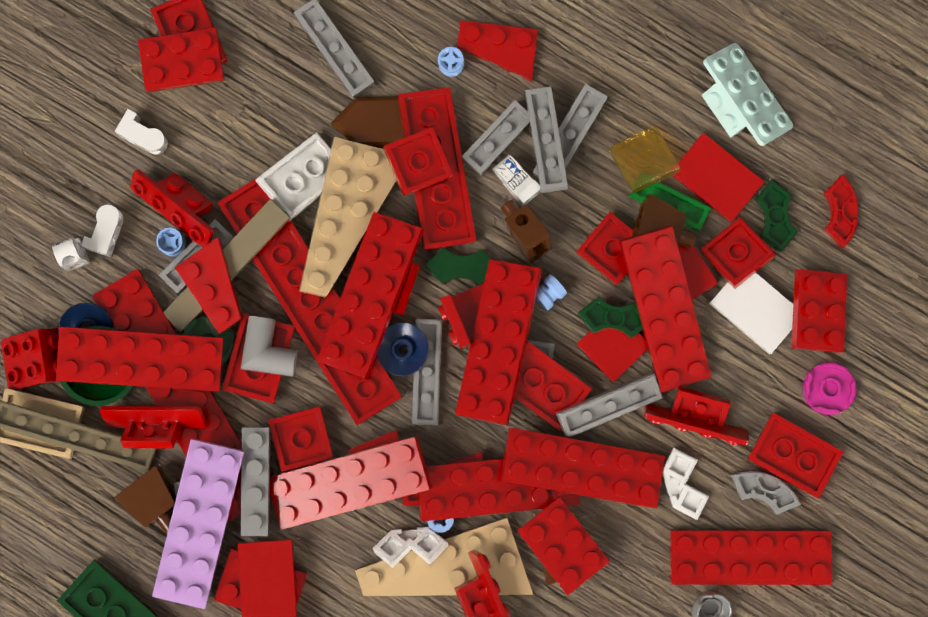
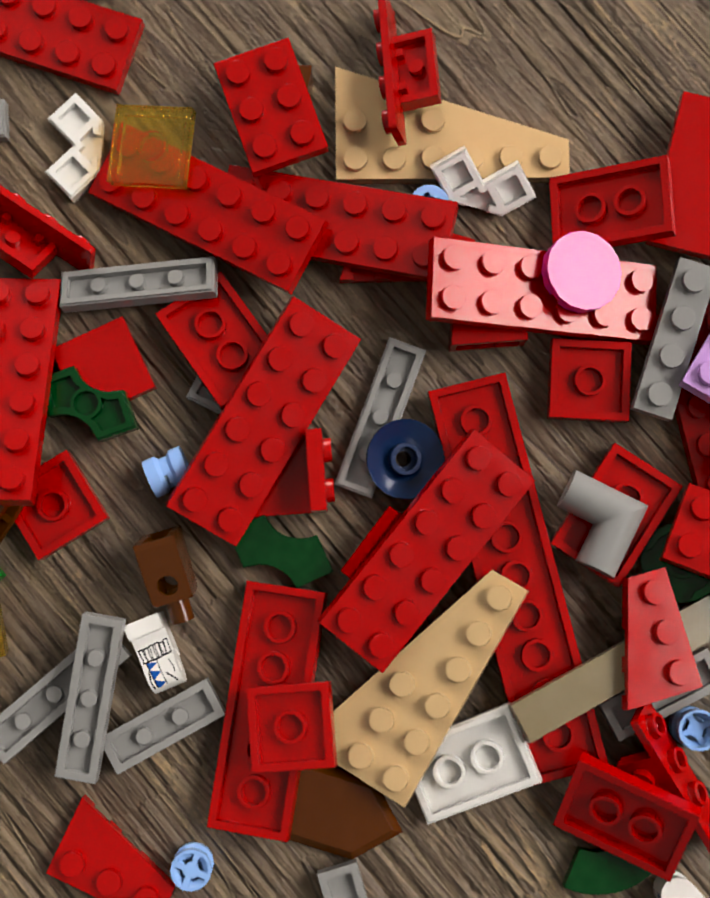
camera: 155 degrees left, 0 degrees up
(193, 145) = (601, 873): none -> dark green tile
(198, 175) = (627, 816): none -> red plate
(321, 555) = (616, 202): none -> red plate
(328, 501) = (581, 271): none -> tile
(631, 495) = (151, 146): none -> clear yellow tile

